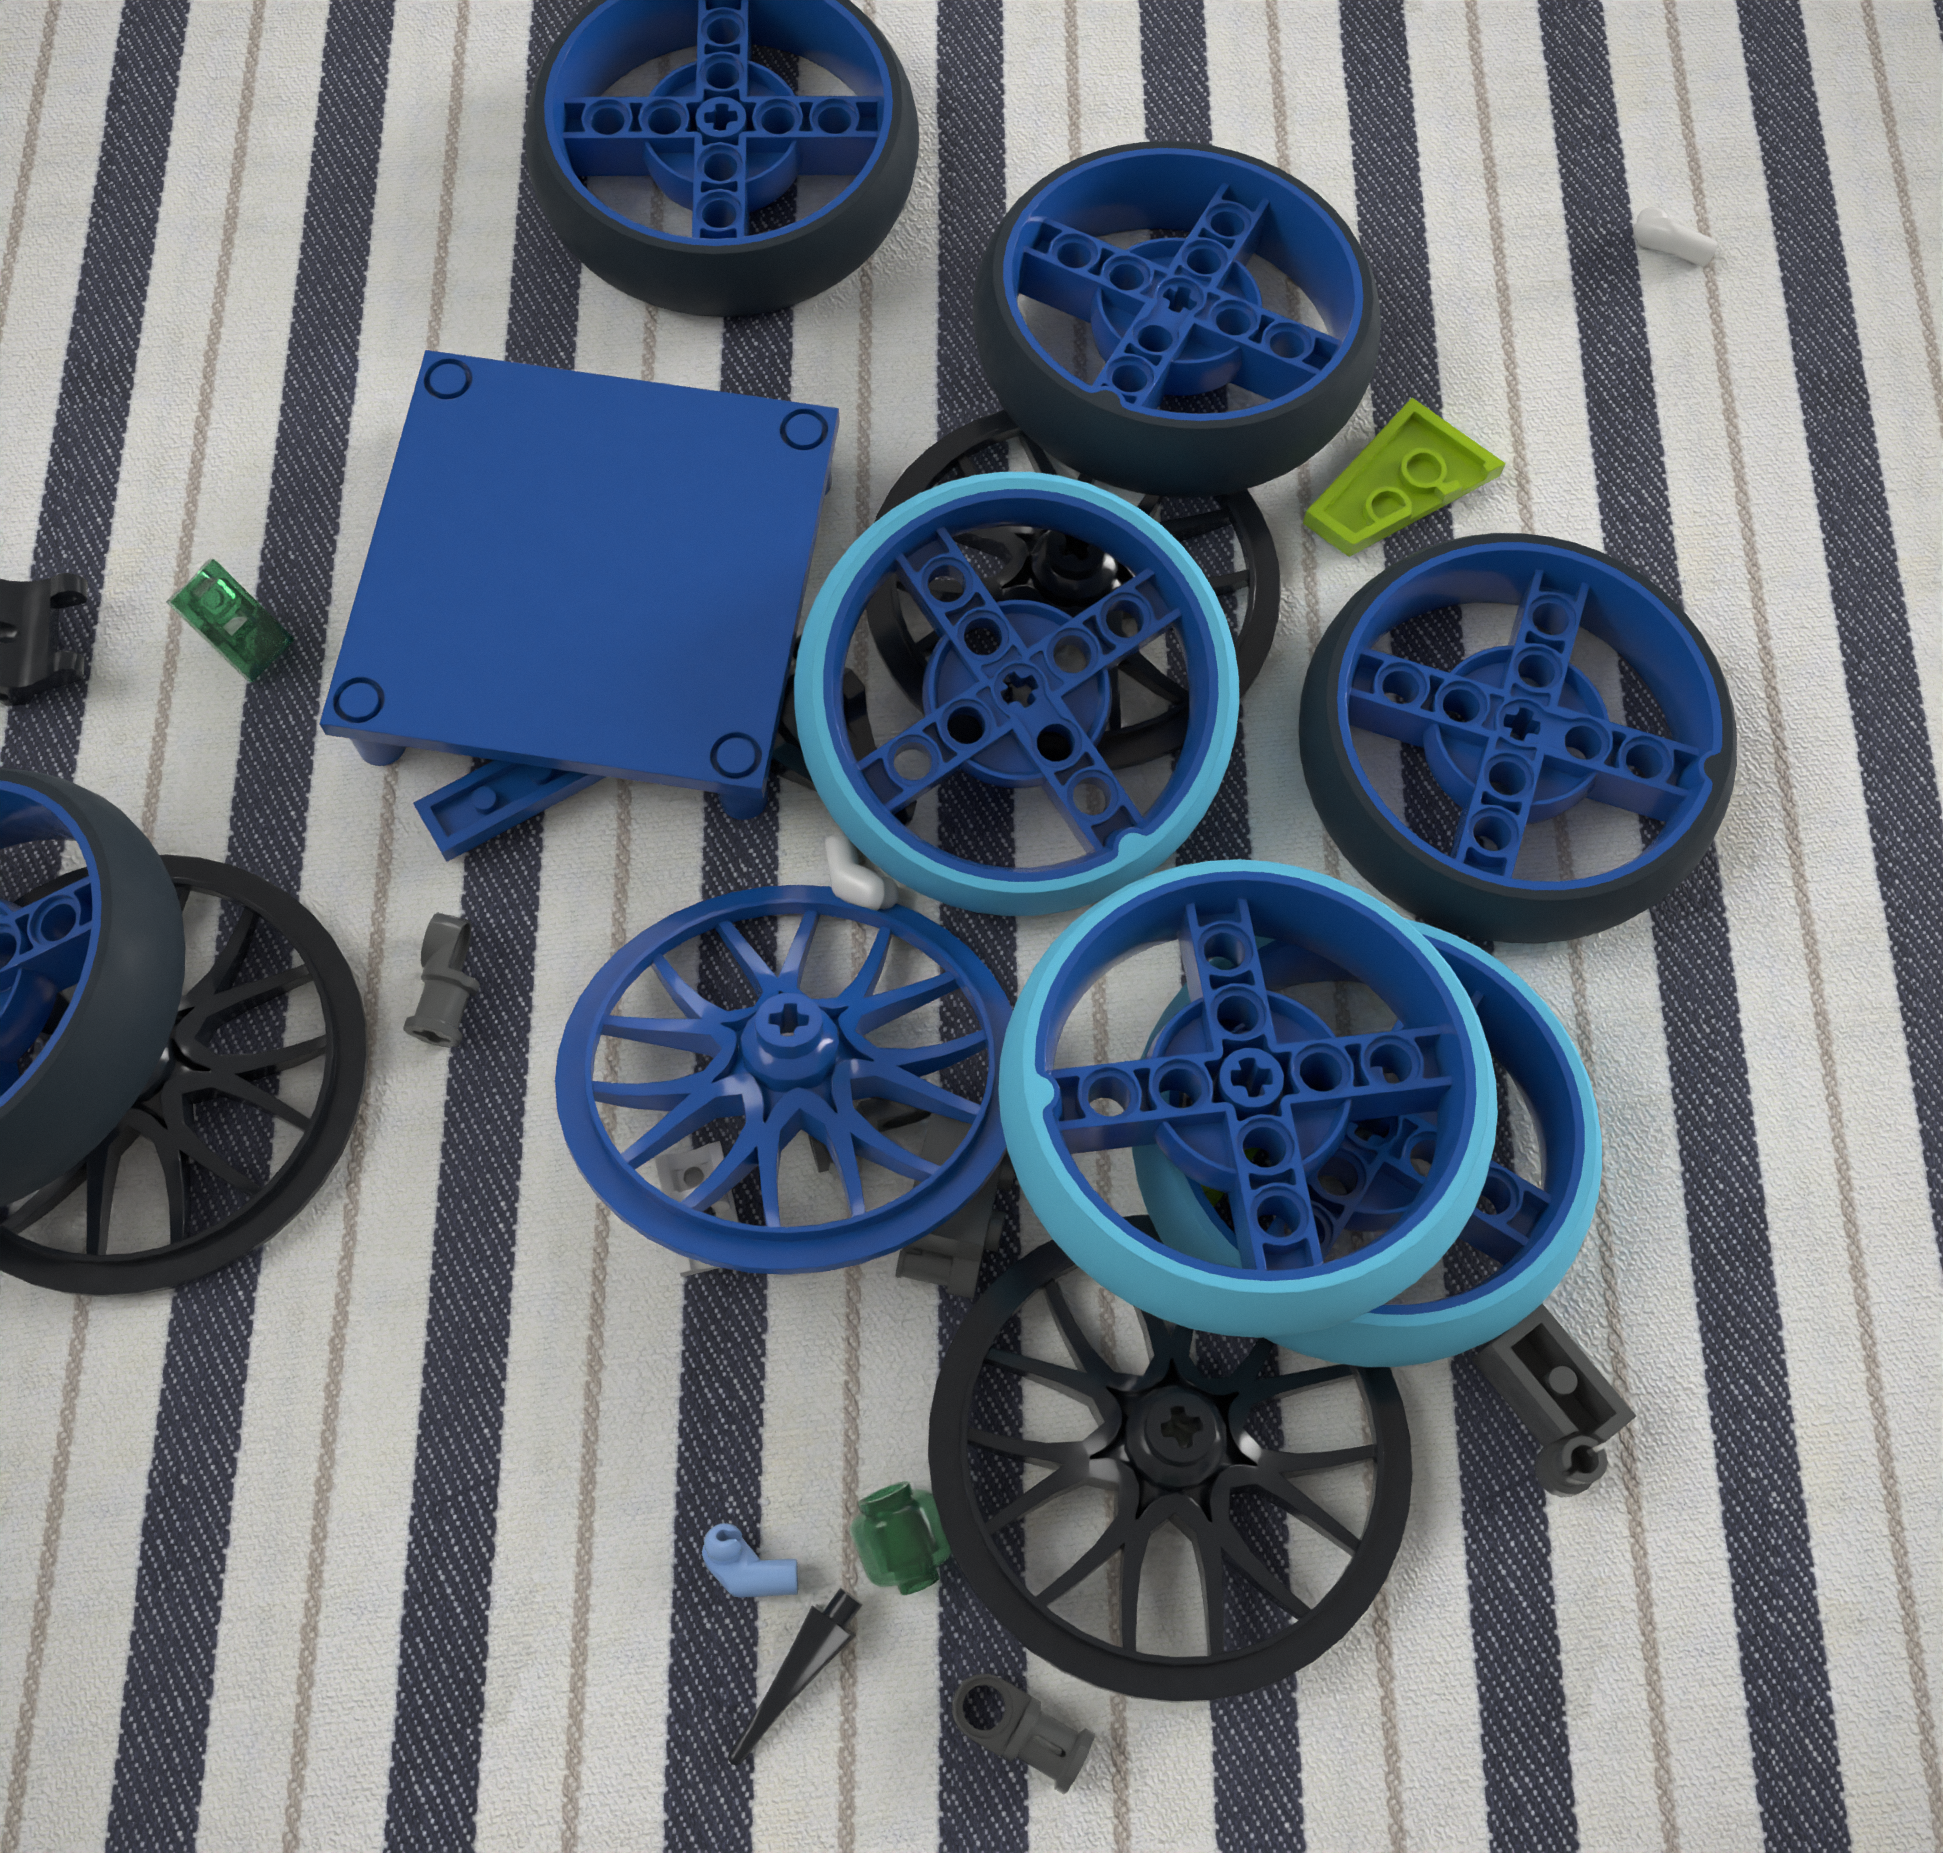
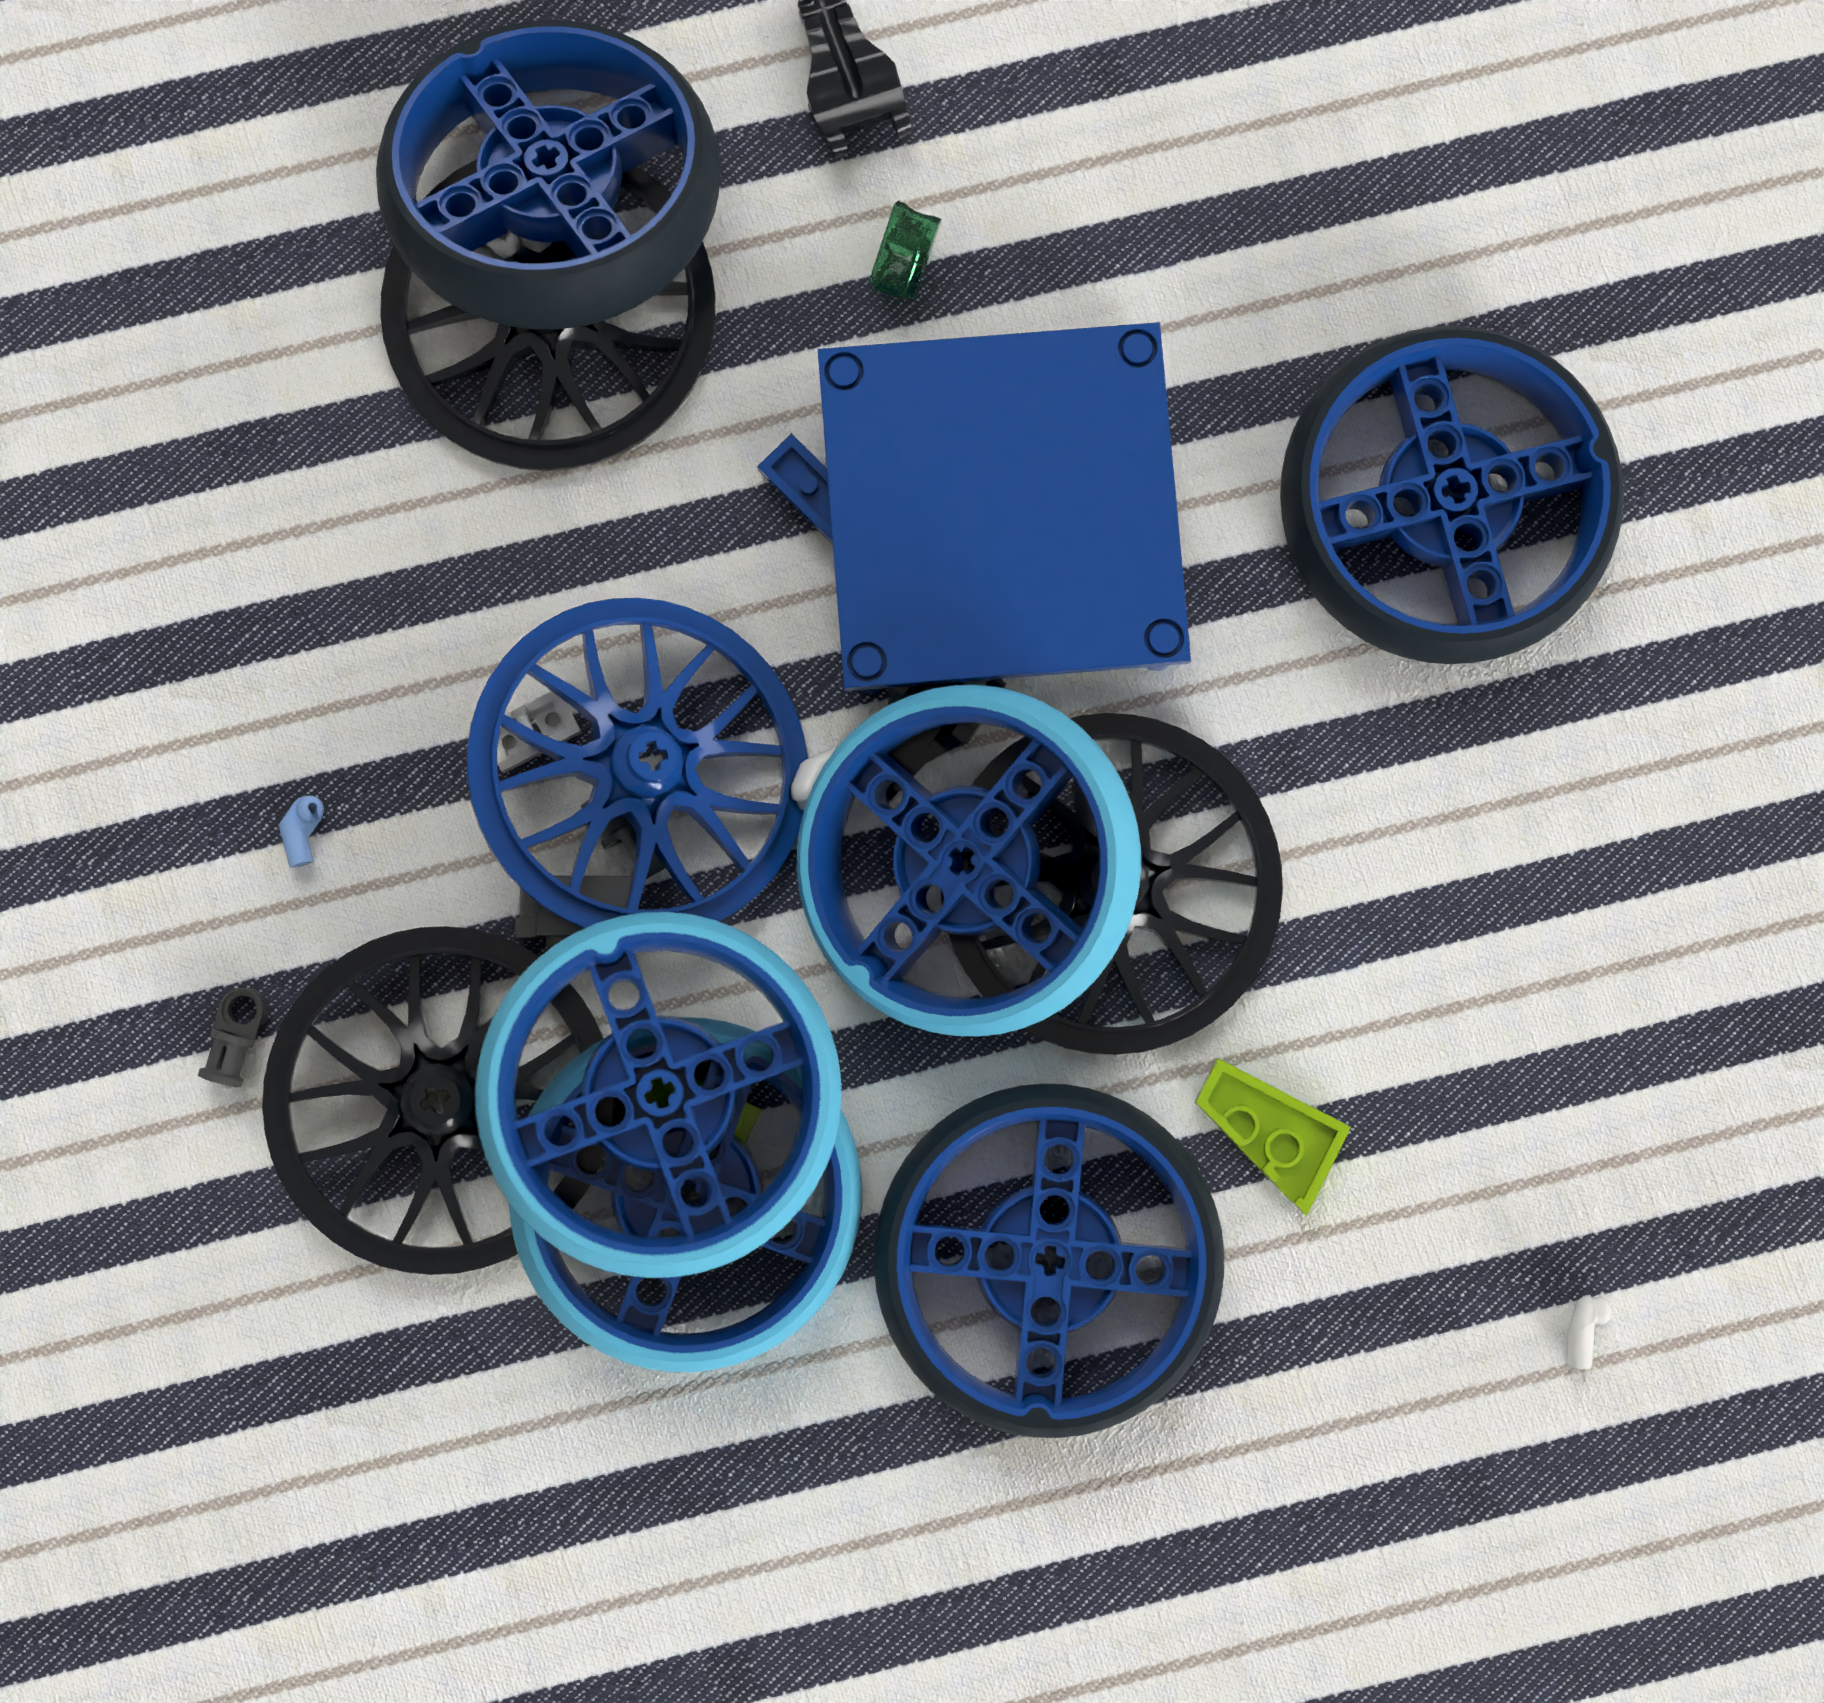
camera: 80 degrees right, 15 degrees up
(445, 985) = (653, 502): dark grey connector -> none
(816, 1644) = (260, 889): black piece -> none
(900, 1538) = (337, 926): clear green head -> none
(1177, 317) = (1491, 947): blue wheel -> none
(1557, 1399) = (527, 1369): dark grey hinge -> none

